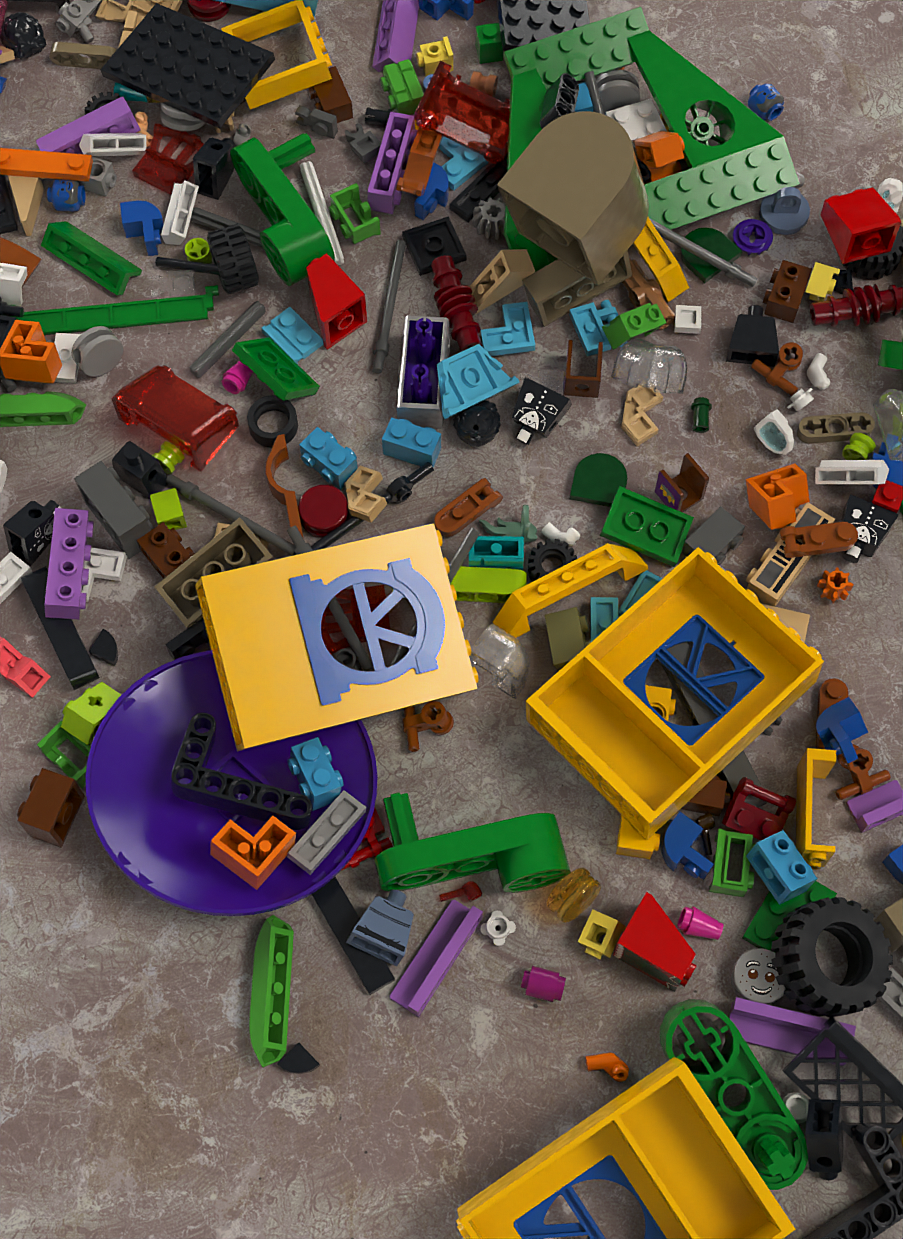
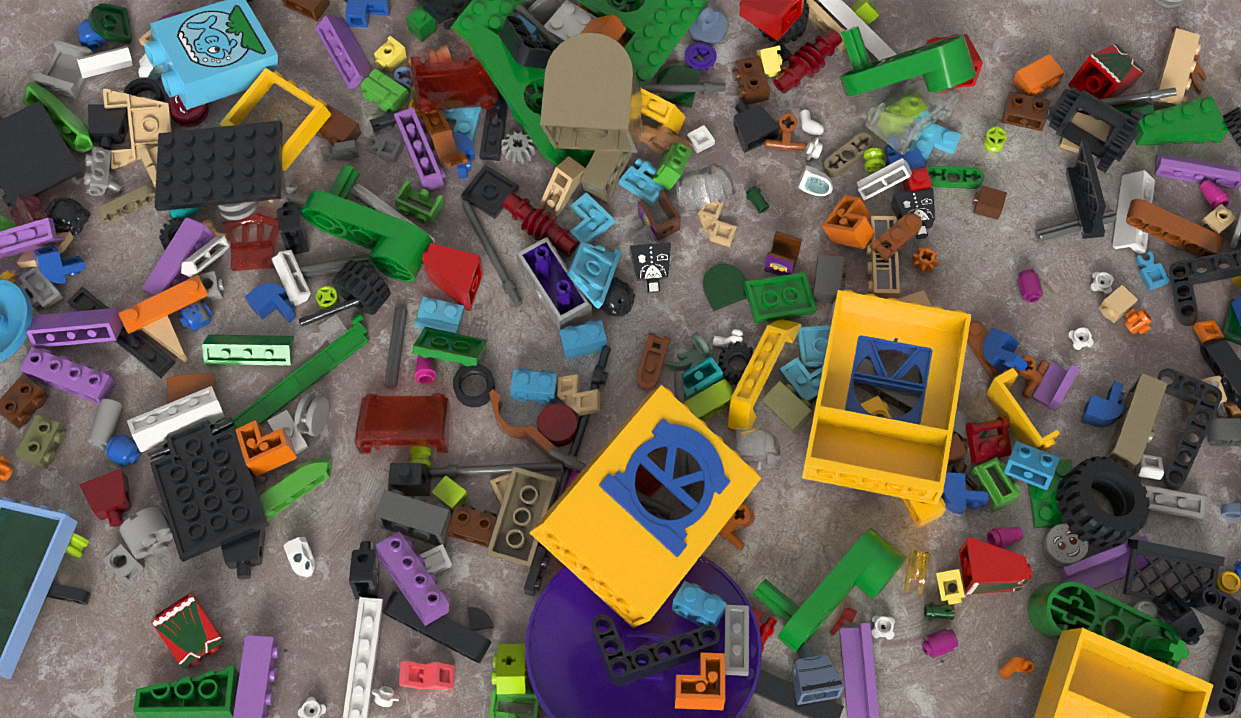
camera: 35 degrees left, 0 degrees up
(568, 952) = (939, 611): none -> dark green pin

